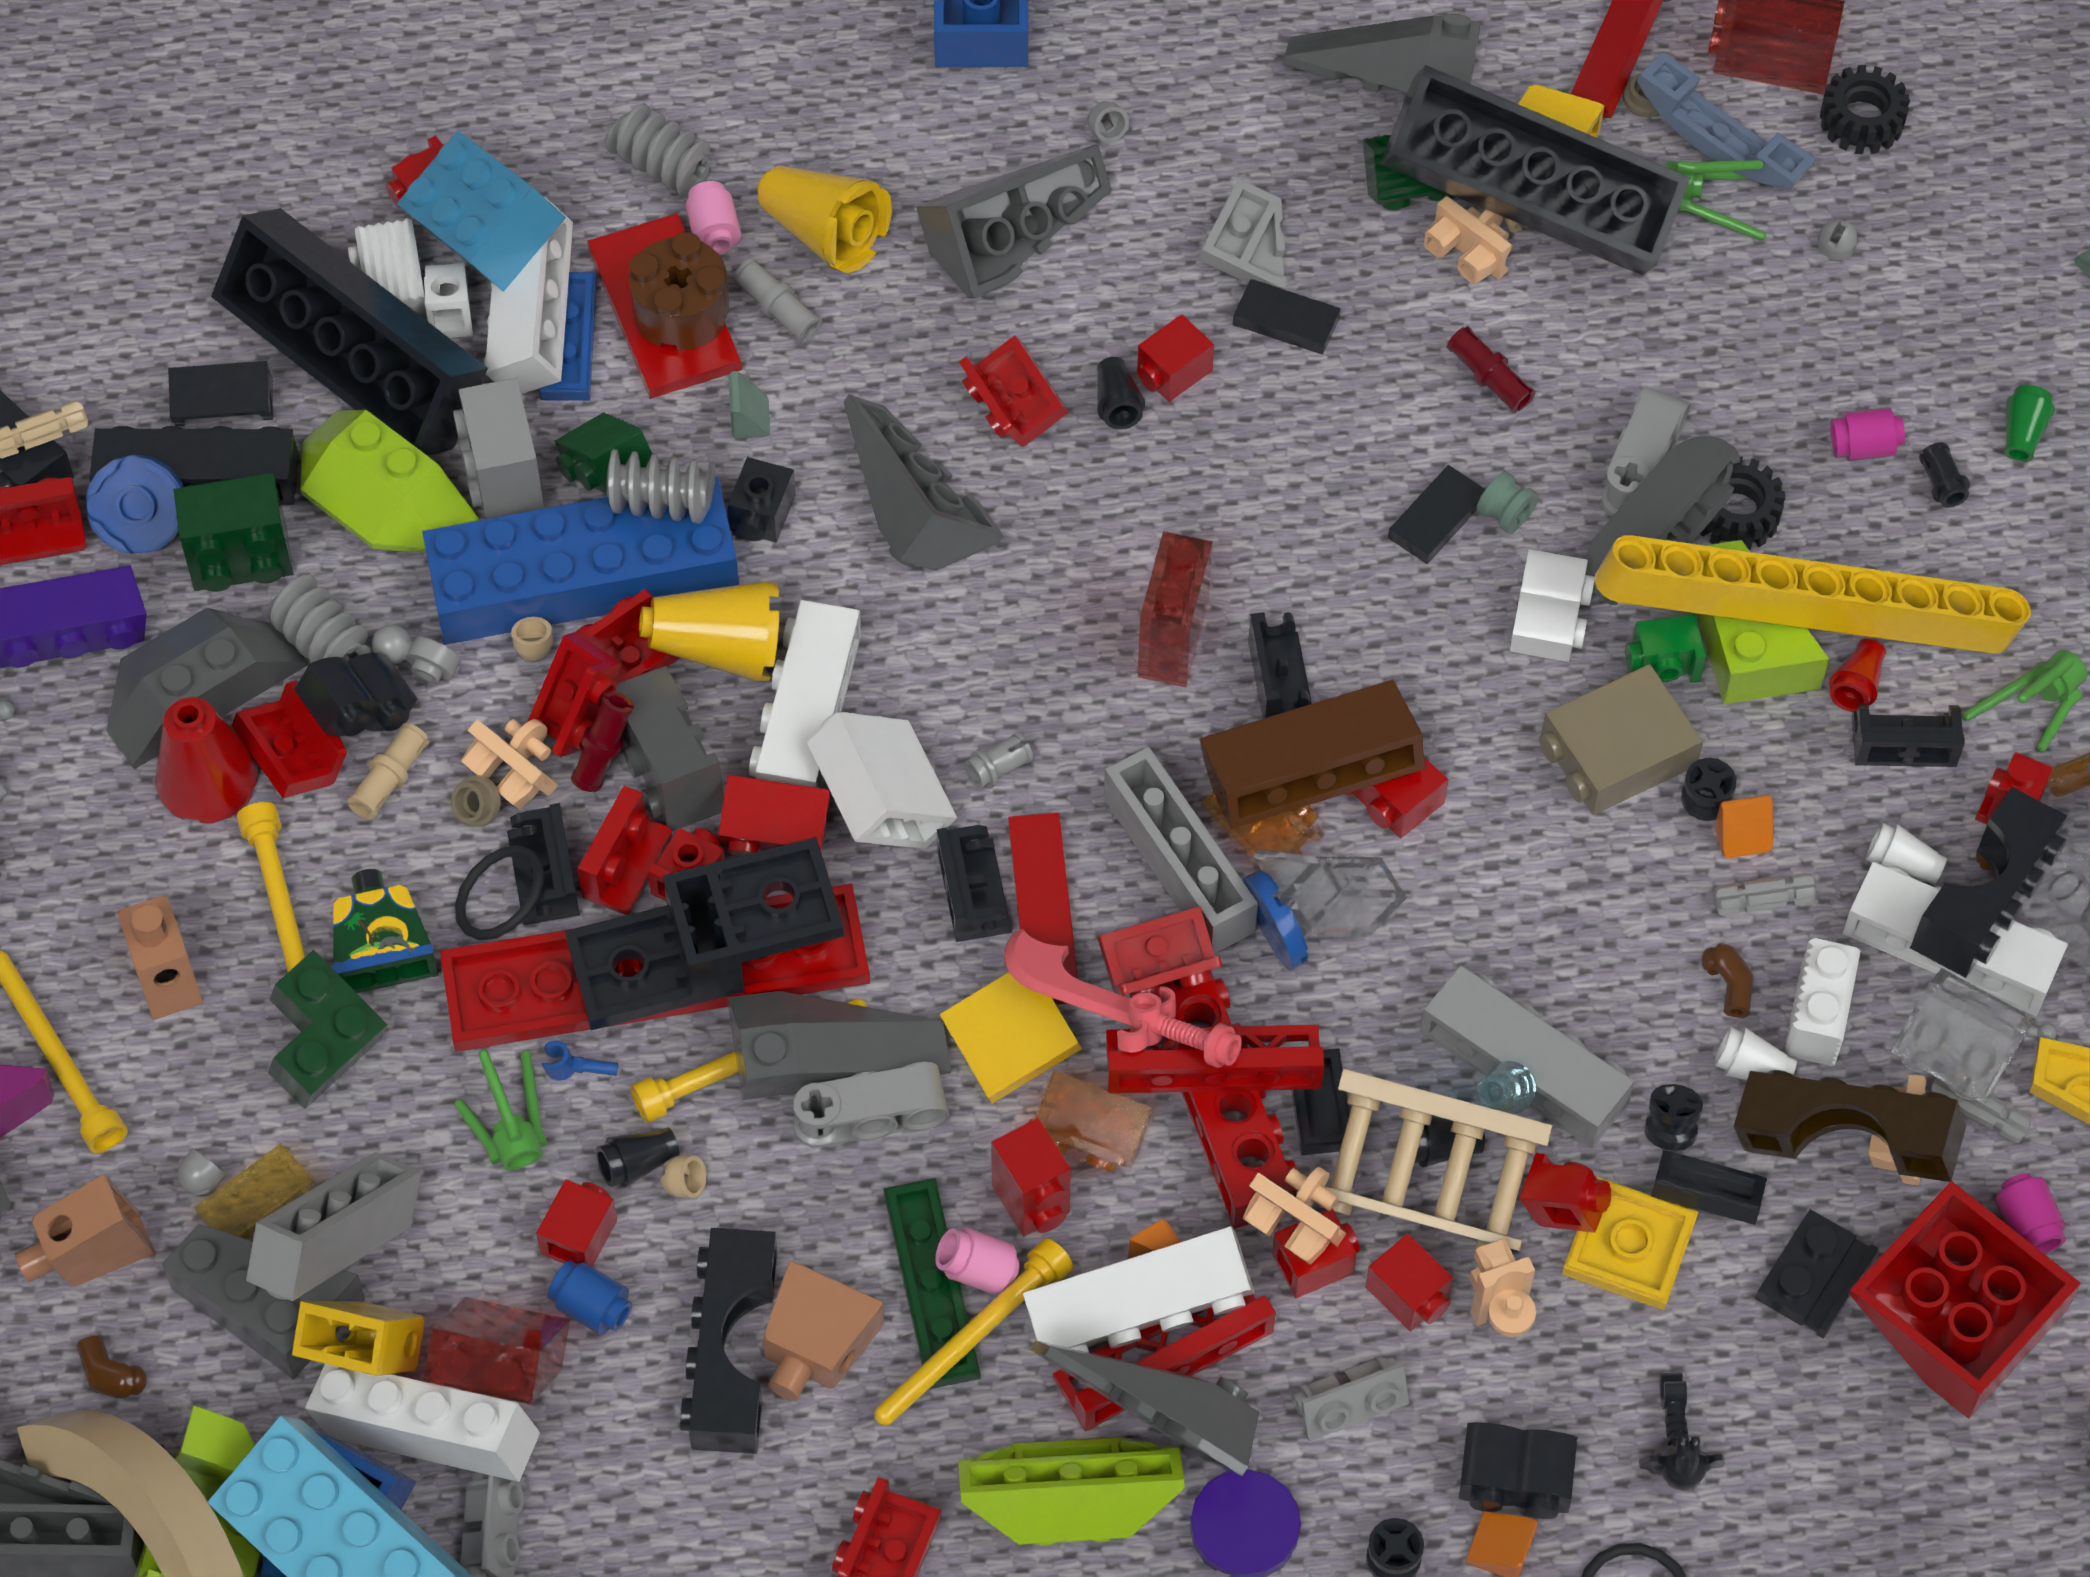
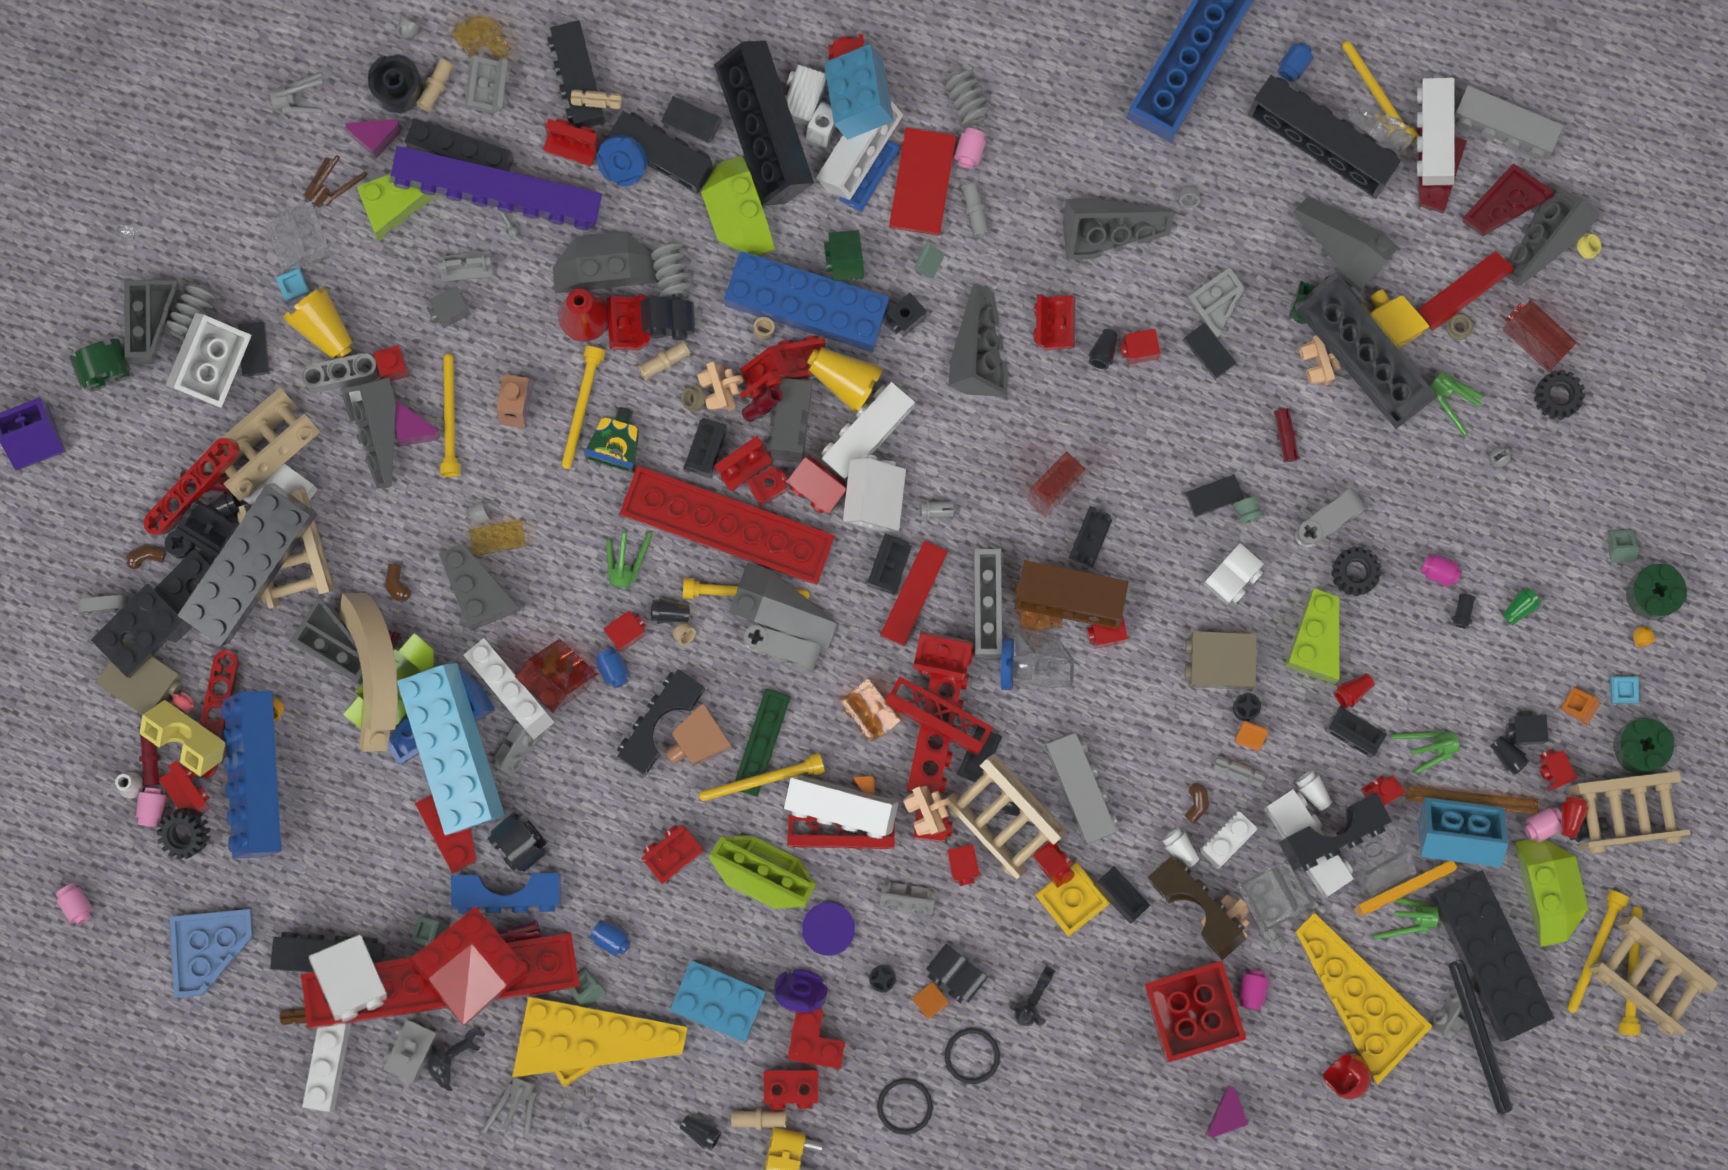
camera: 30 degrees right, 20 degrees up
(86, 1235) = (416, 519): nougat torso -> none
(233, 532) = (656, 202): dark green brick -> none
(332, 1226) = (515, 582): light grey brick -> none
(333, 1025) = (570, 480): dark green brick -> none
(379, 1341) = (502, 636): yellow torso -> none
(429, 658) = (701, 297): light grey plate -> none
(498, 449) = (799, 225): light grey brick -> none
(521, 914) = (690, 464): black piece -> none
(571, 1064) = (669, 552): blue hand -> none
(659, 487) = (853, 295): light grey piece -> none
(679, 292) = (938, 175): reddish brown brick -> none
(704, 933) = (750, 531): black bracket -> none
(828, 213) = (1023, 177): yellow cone -> none
(977, 1260) = (784, 747): bright pink brick -> none
(1009, 1035) = (863, 646): yellow tile -> none
(1031, 1178) = (827, 726): red brick -> none
(1150, 1017) = (887, 629): coral sword -> none
(1187, 1409) = (830, 870): dark grey wedge -> none
(1502, 1290) = (997, 895): light nougat hips -> none
(1517, 1088) = (1056, 804): clear light blue cone -> none
(1670, 646) = (1272, 627): green brick -> none
(1672, 500) = (1309, 563): dark grey brick -> none
(1673, 1117) = (1126, 848): black wheel -> none
(1713, 132) = (1479, 368): sand blue slope -> none
(1811, 594) = (1338, 647): yellow beam -> none
(1816, 1273) = (1144, 960): black plate -> none

